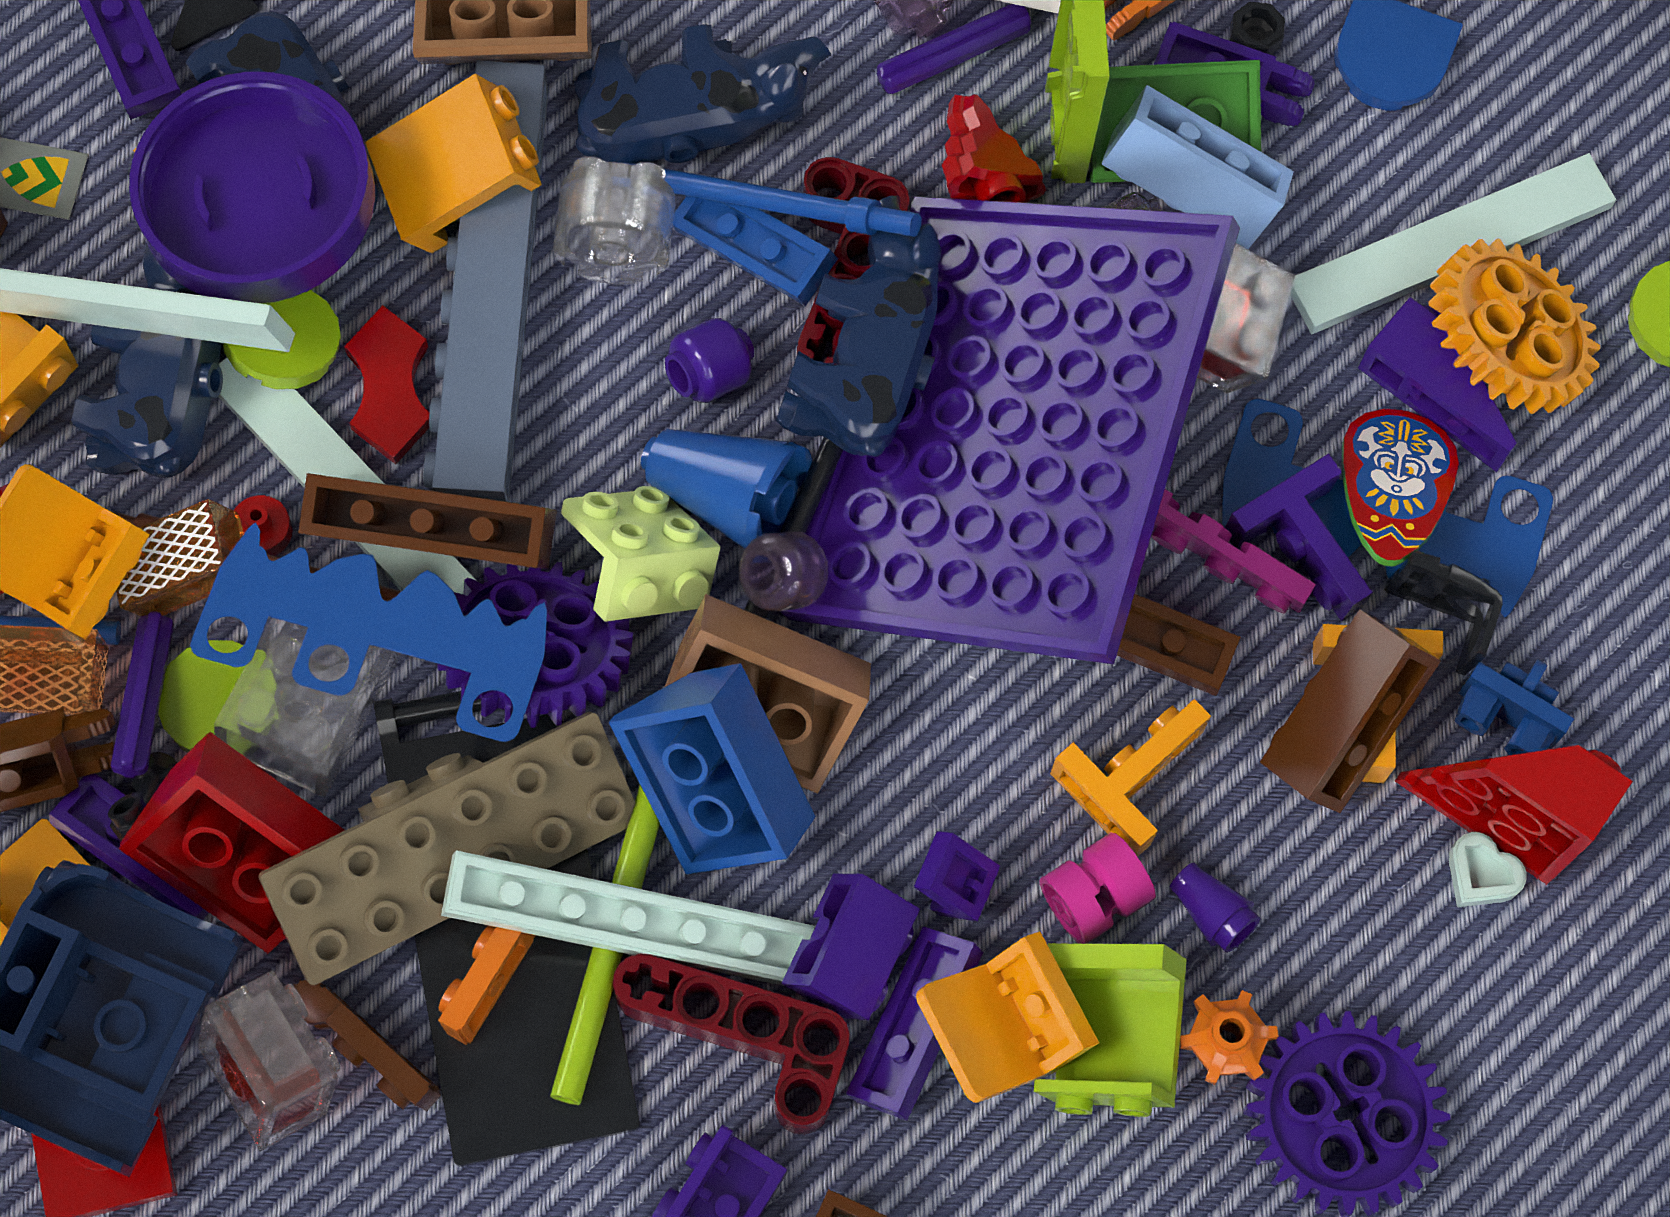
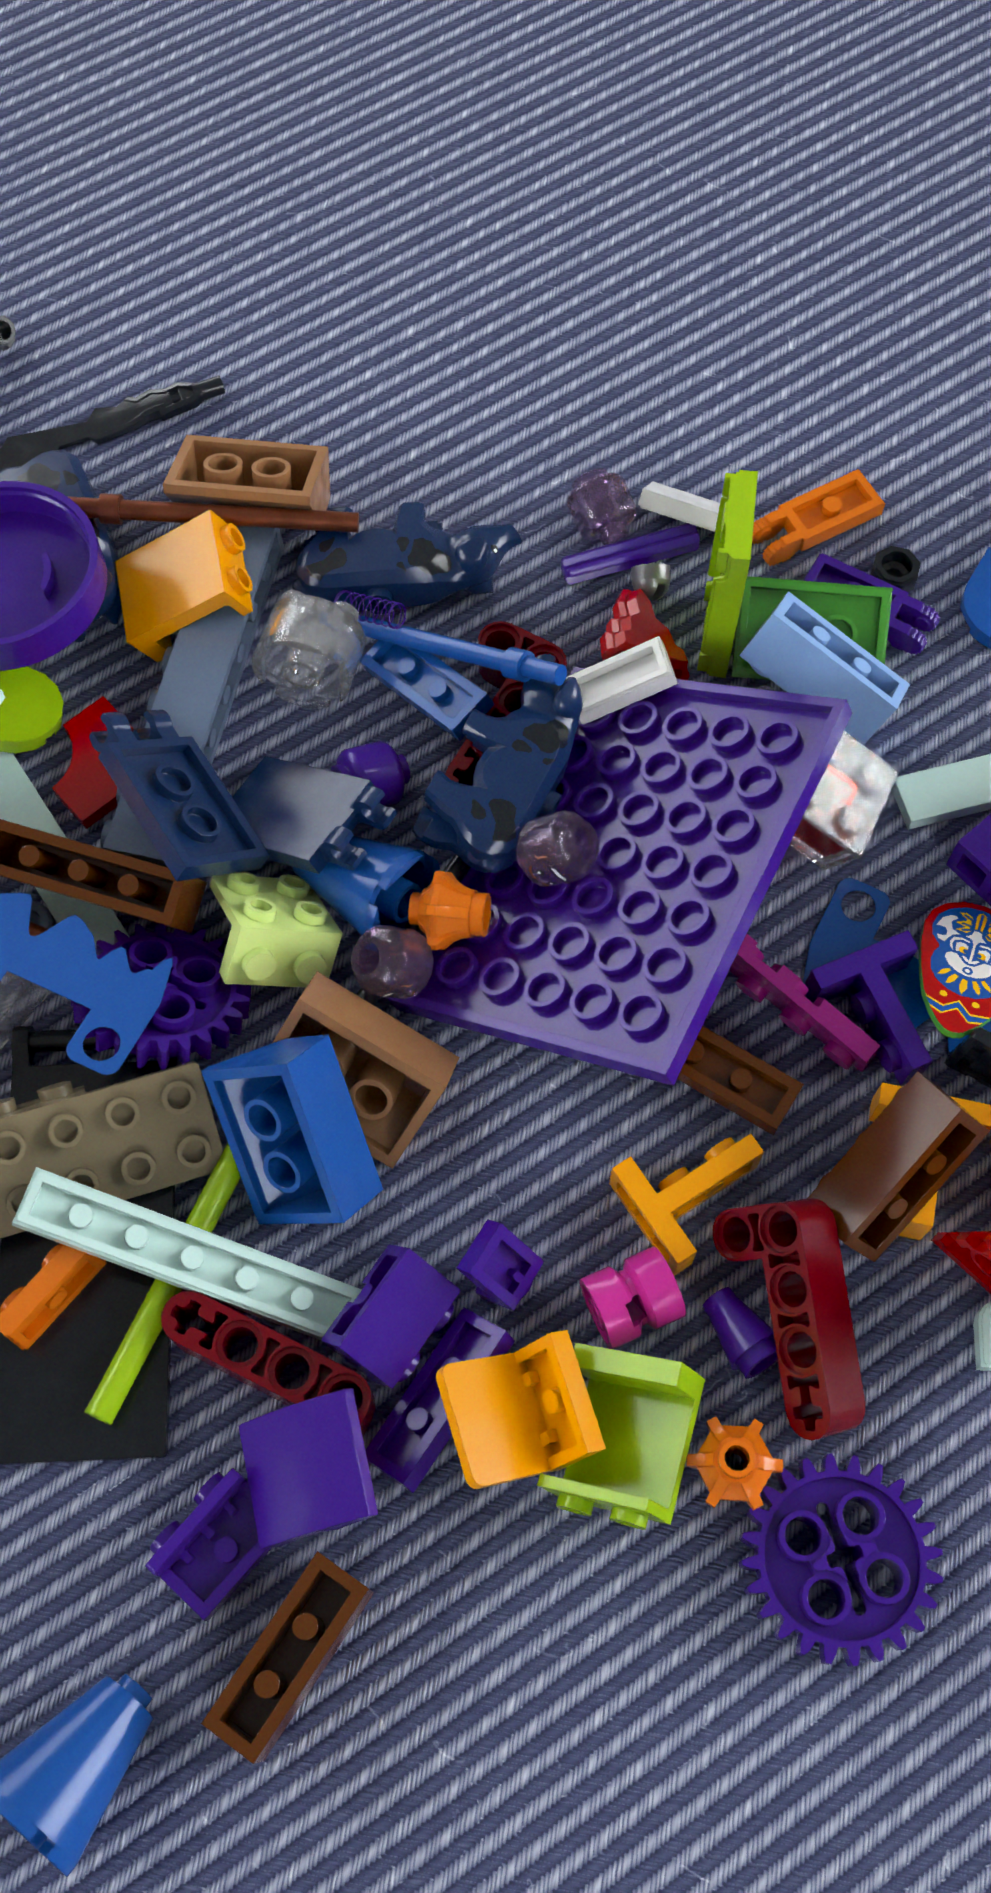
camera: 15 degrees right, 5 degrees down
(356, 83) = (115, 509): none -> copper bar
(511, 420) = (177, 798): none -> dark blue tile
(635, 151) = (389, 612): none -> dark purple piece
(645, 418) = (310, 813): none -> dark blue tile
(800, 1111) = (307, 1469): none -> dark purple slope
(834, 505) = (449, 911): none -> orange rock
(943, 421) = (557, 848): none -> clear purple head
(979, 209) = (624, 679): none -> white tile
(984, 79) = (652, 579): none -> flat silver hinge
(1301, 949) = (806, 1308): none -> dark red beam

